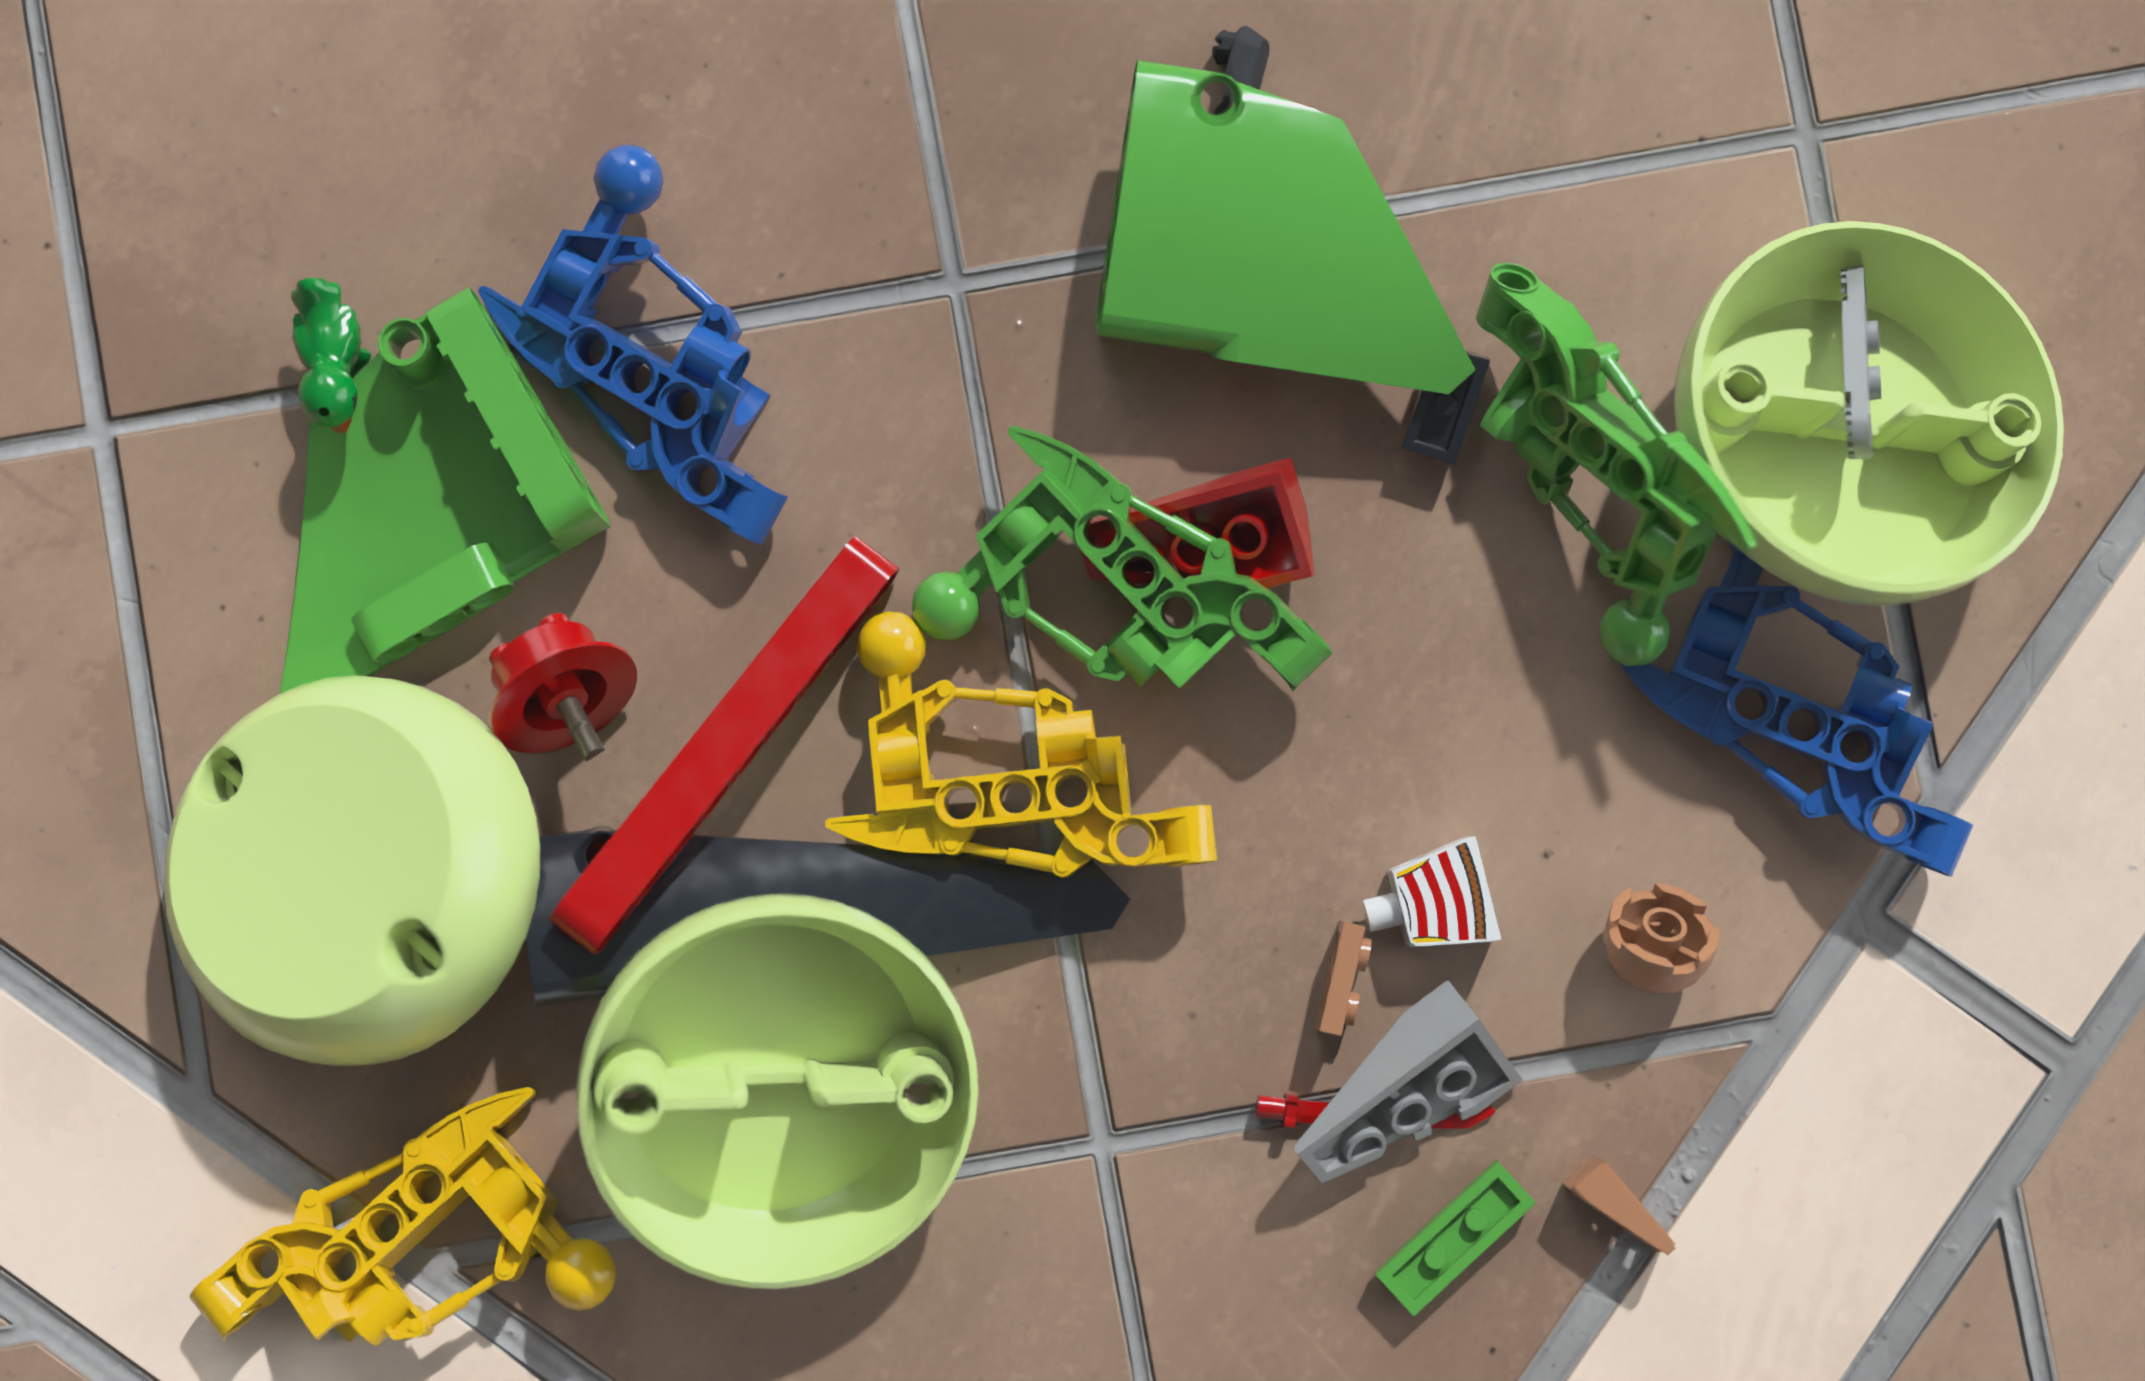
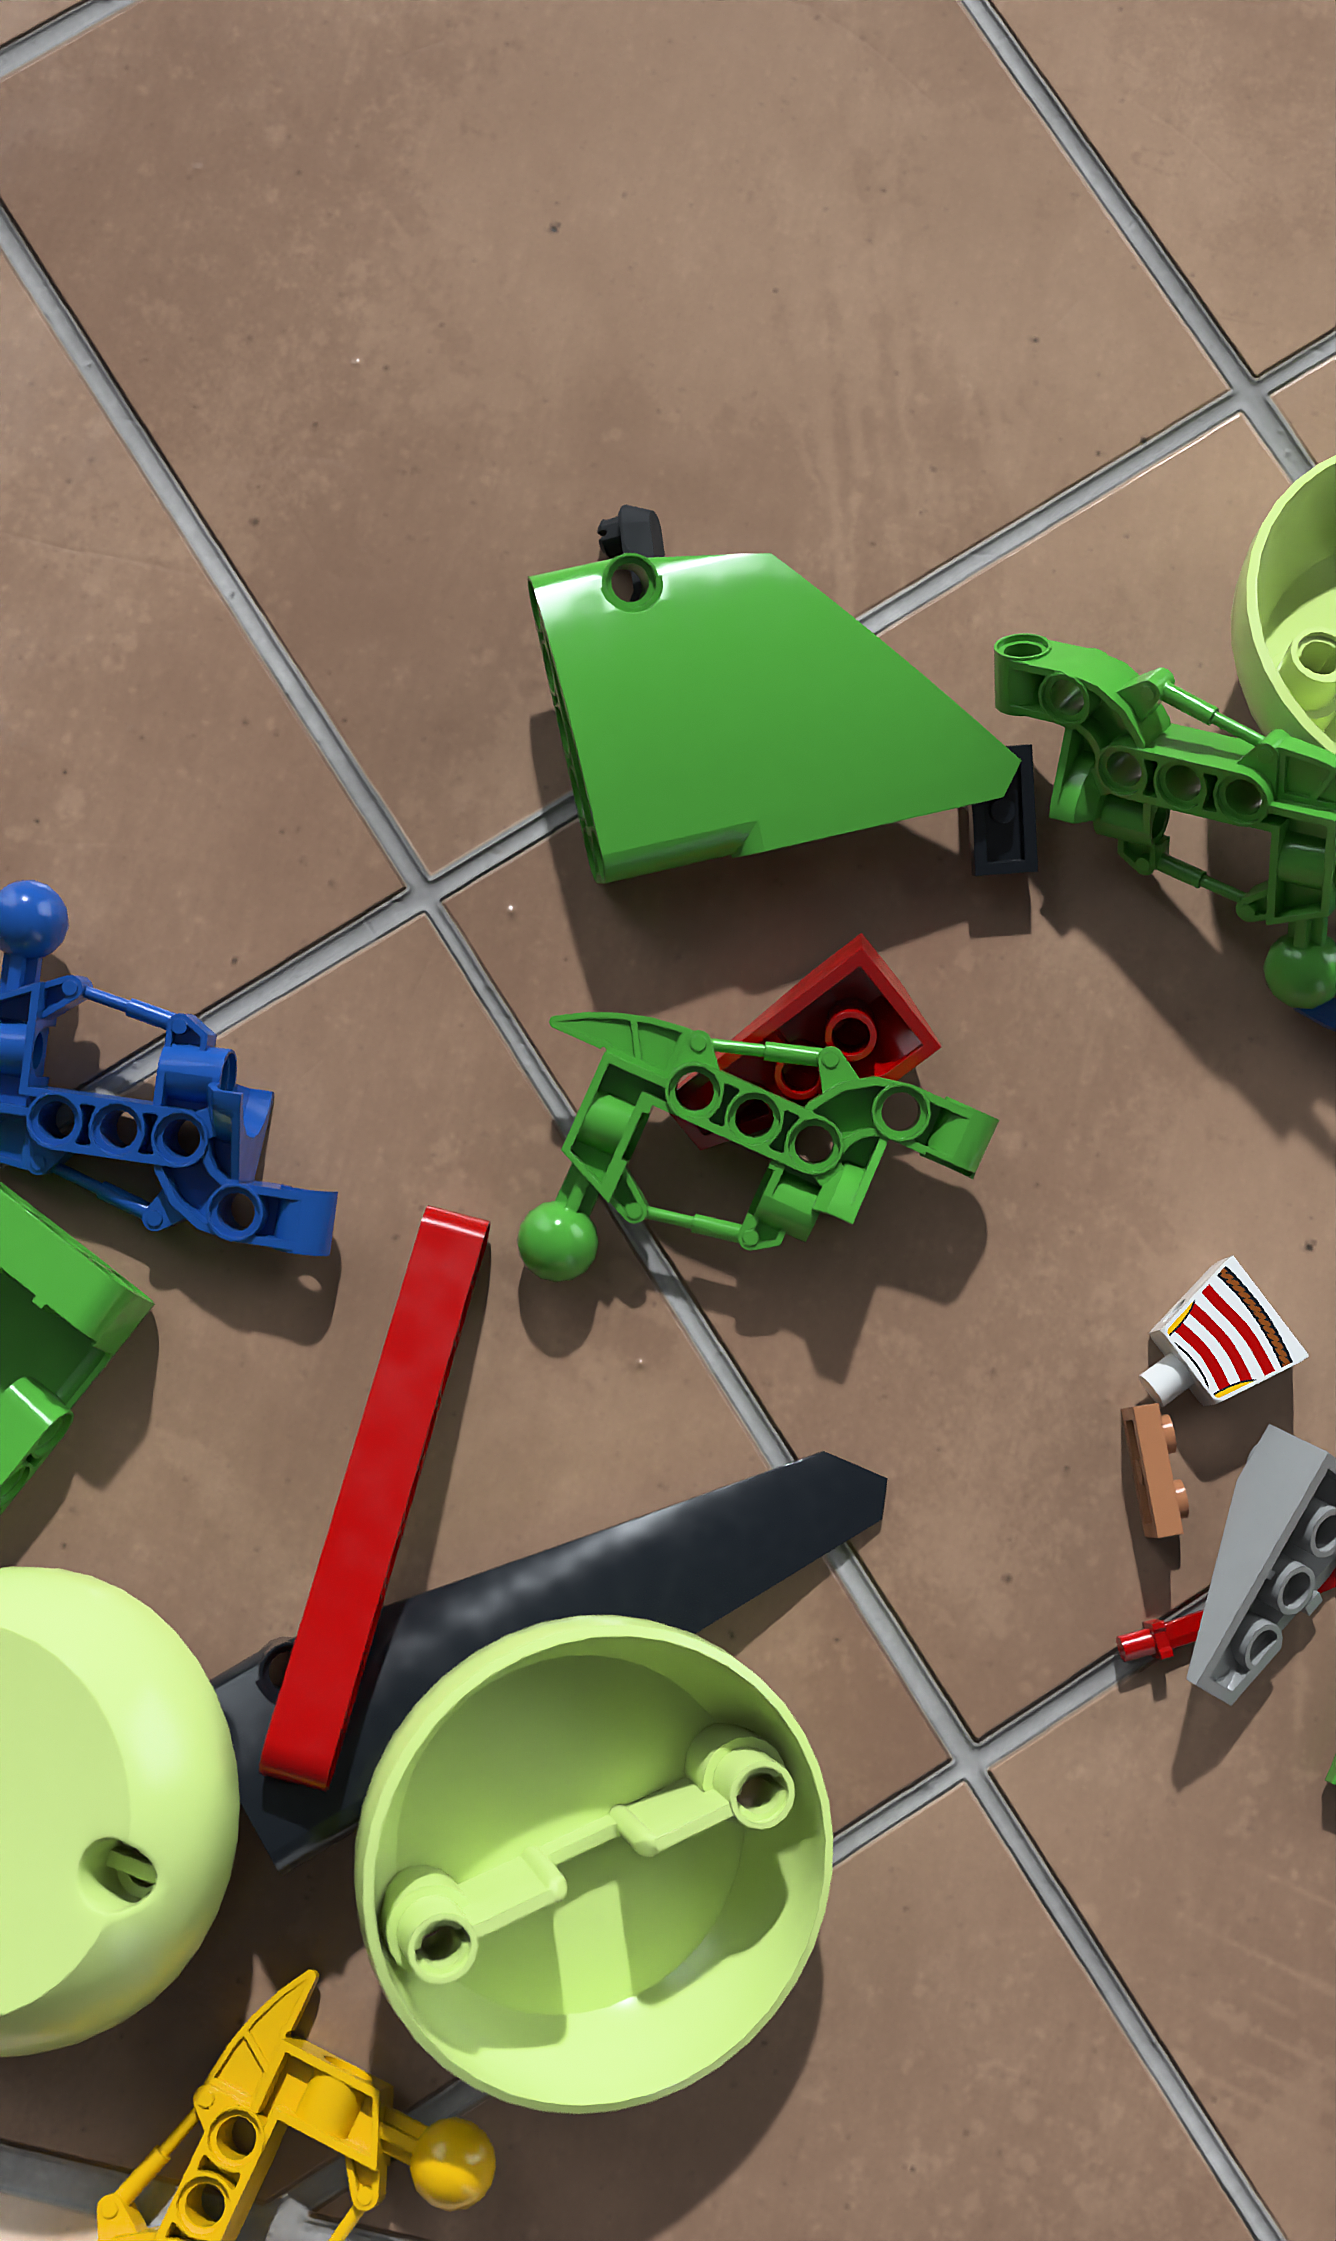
camera: 30 degrees left, 5 degrees down
(558, 688) = (166, 1505): red piece -> none
(915, 805) = (613, 1472): yellow piece -> none

